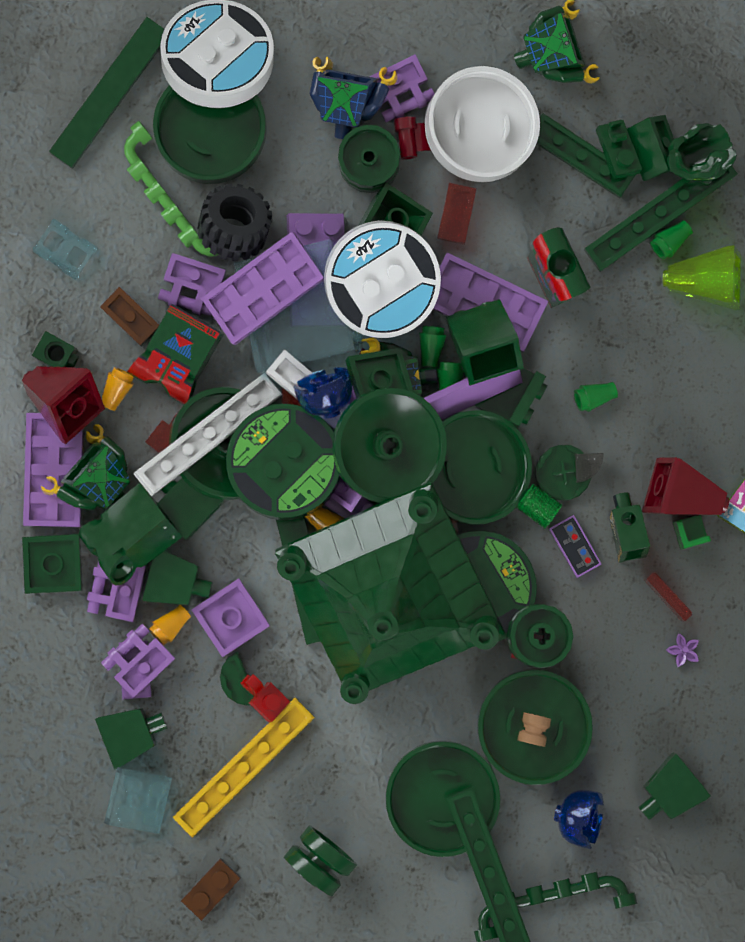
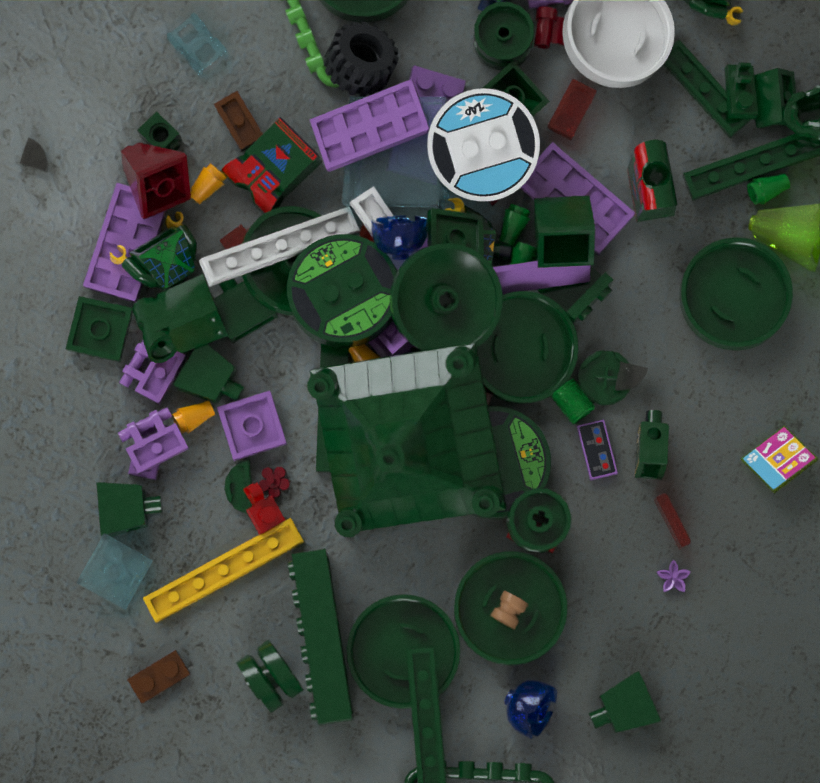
camera: 20 degrees right, 5 degrees down
(190, 275) = (306, 98): medium lavender plate -> none
(268, 665) = (275, 481): none -> dark red plant
(361, 809) = (322, 637): none -> dark green brick
(594, 395) = (654, 313): green cone -> none
(669, 354) = (735, 294): none -> dark green piece
(682, 490) = (714, 425): dark red slope -> none
(690, 532) = (710, 467): green panel -> none

